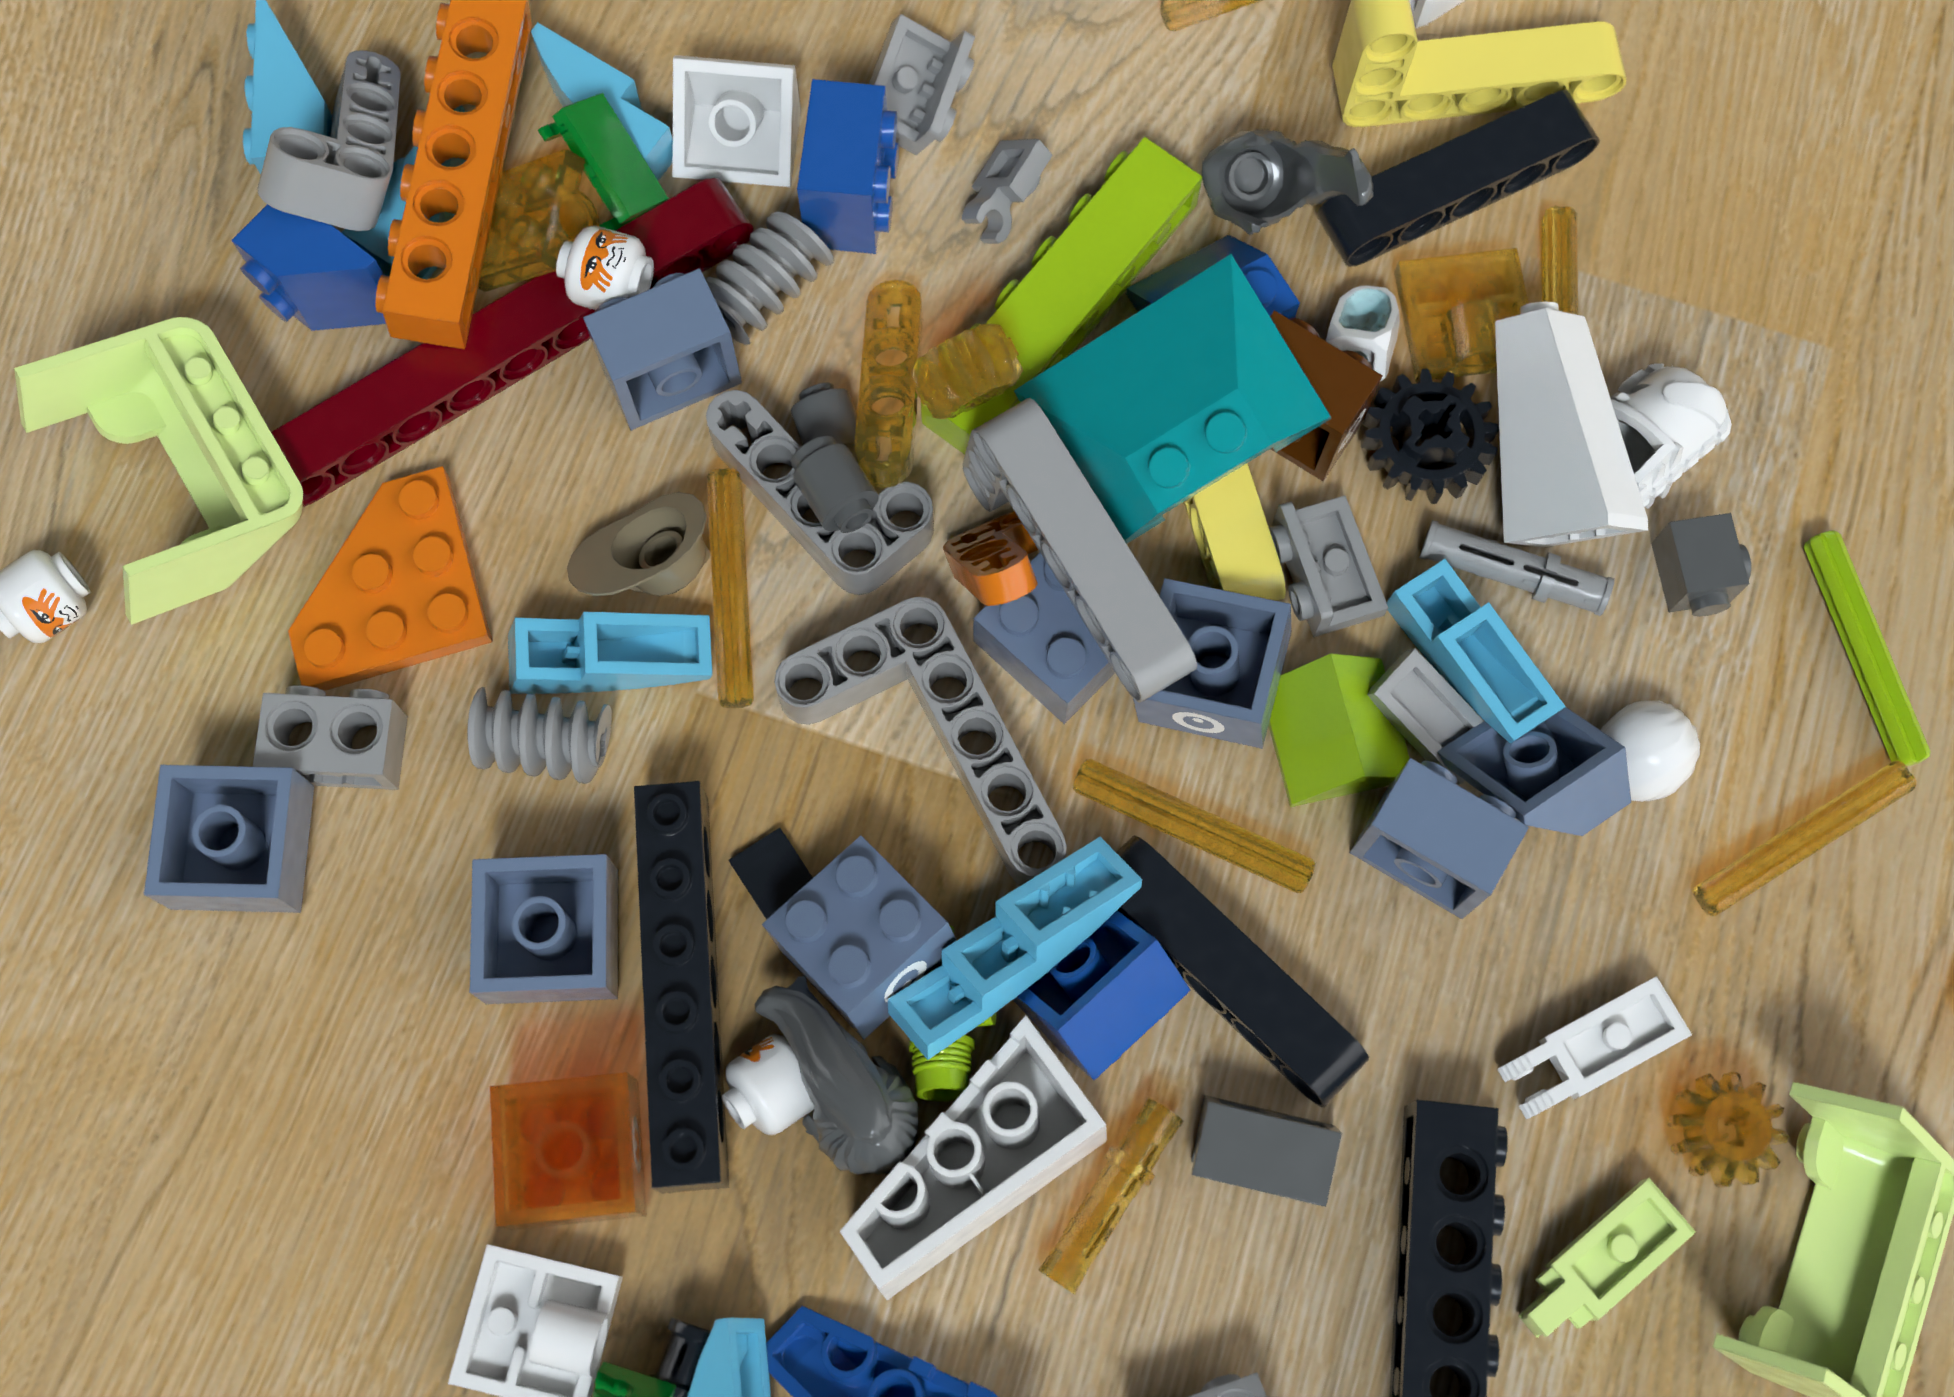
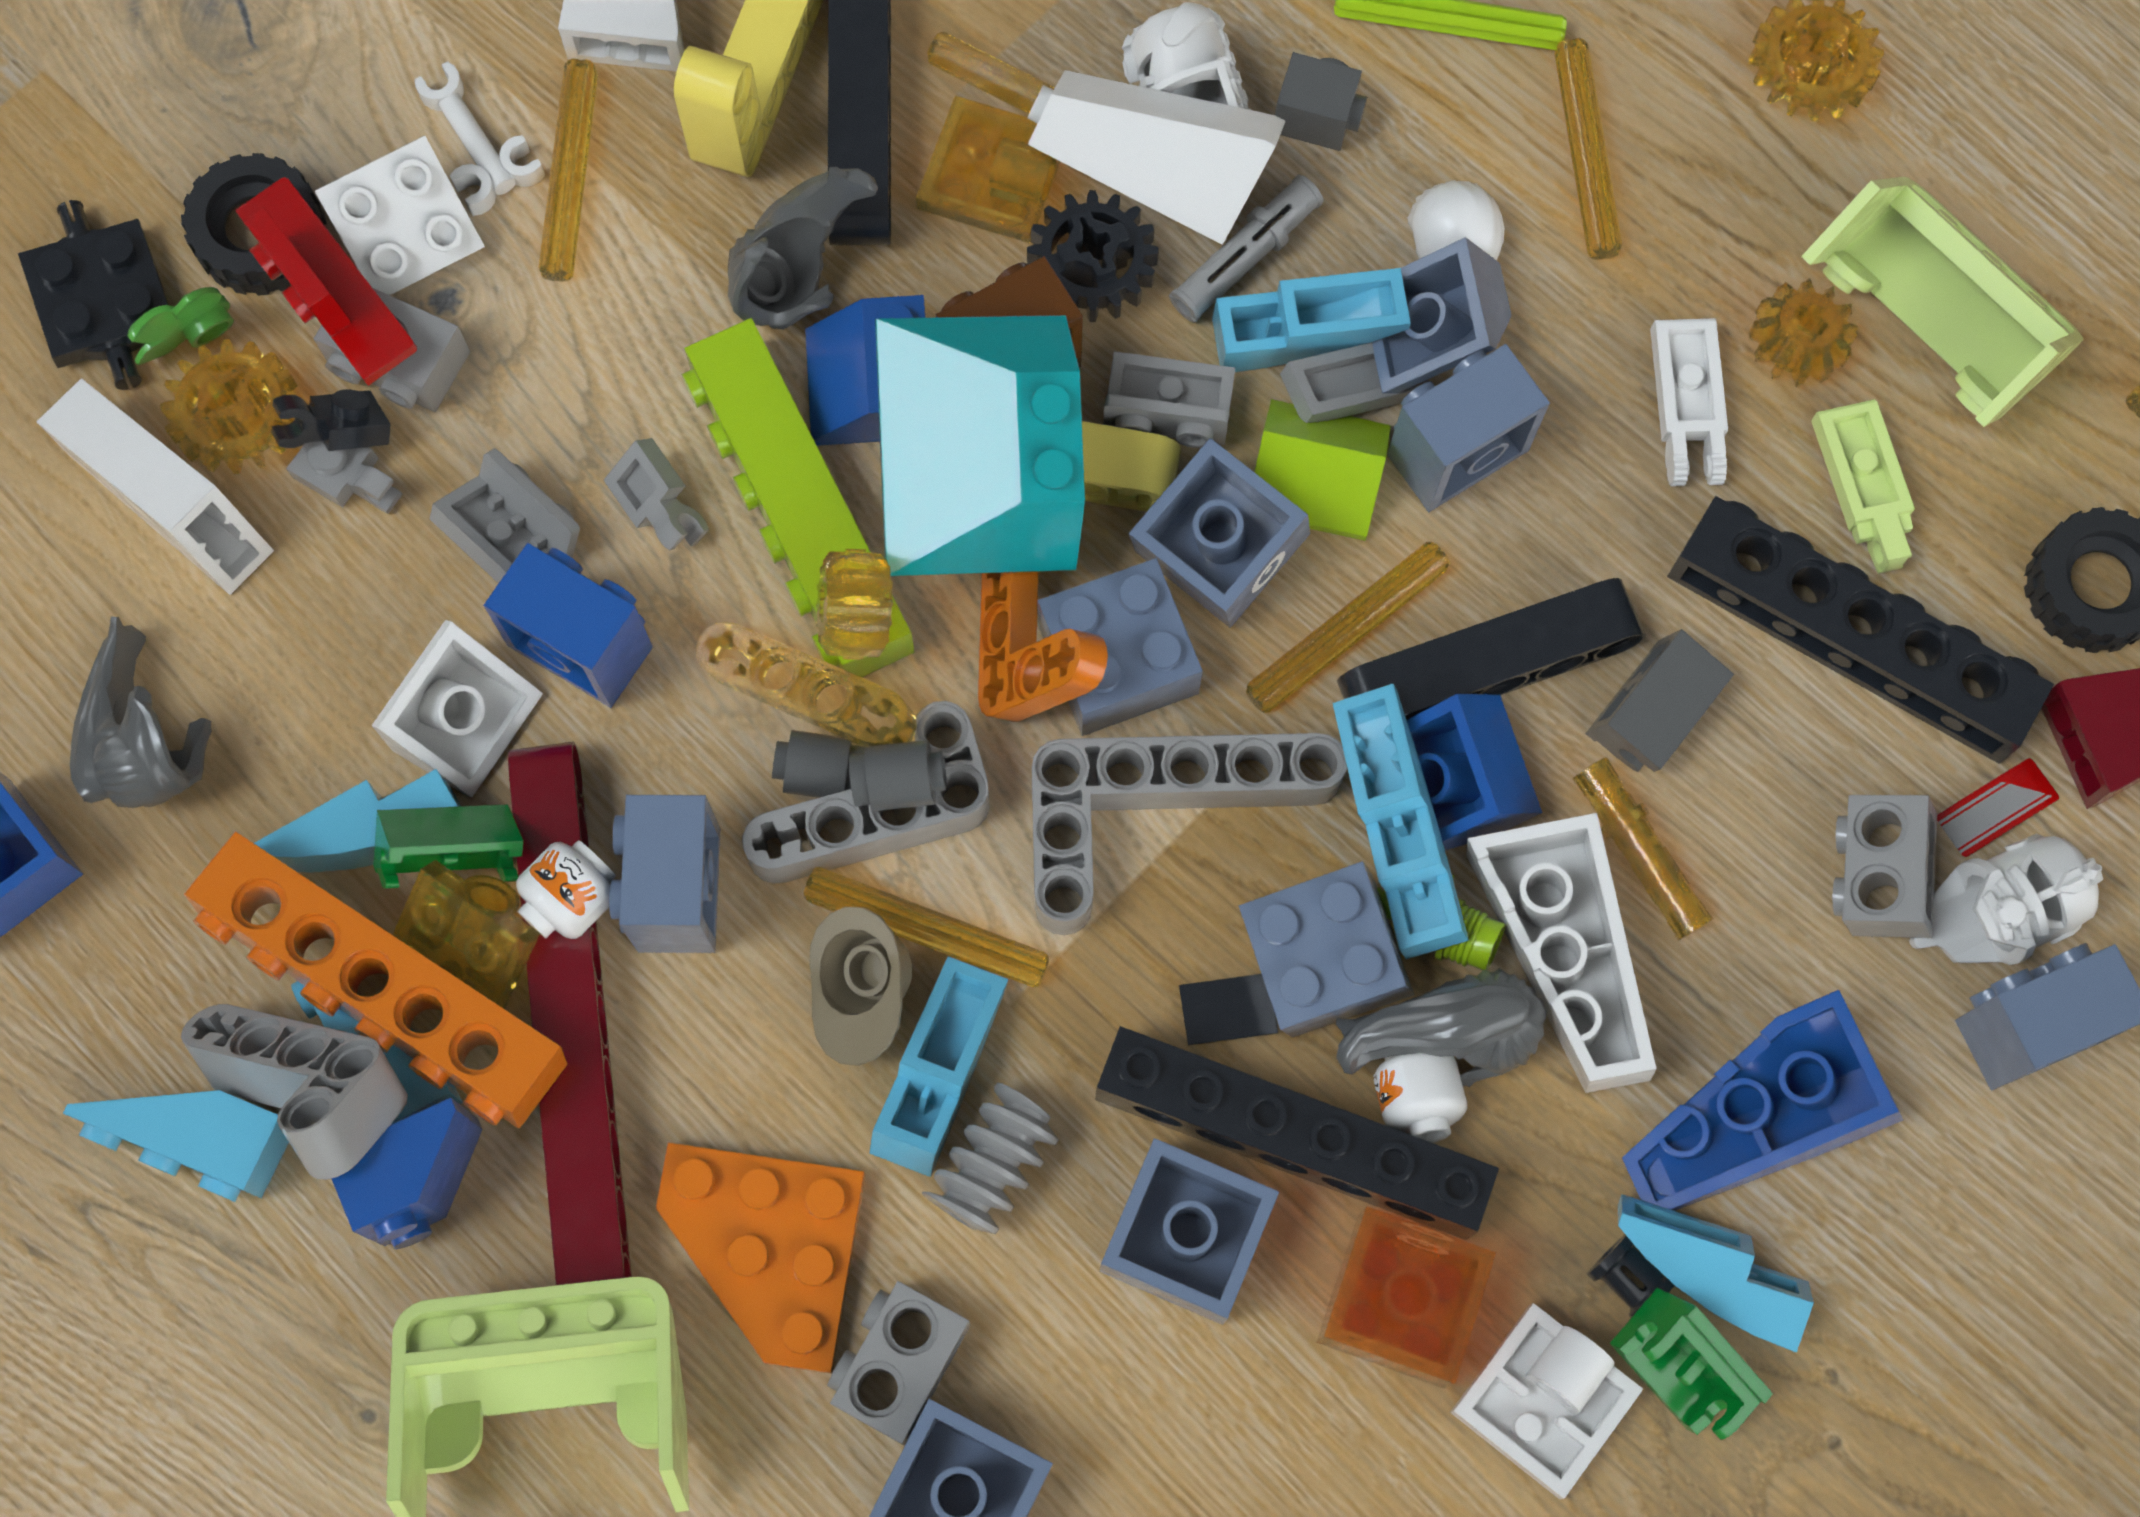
camera: 65 degrees left, 0 degrees up
(764, 270) = (628, 745): light grey piece -> none
(1027, 464) = (1063, 583): light grey beam -> none
(1366, 324) = (965, 254): rock -> none

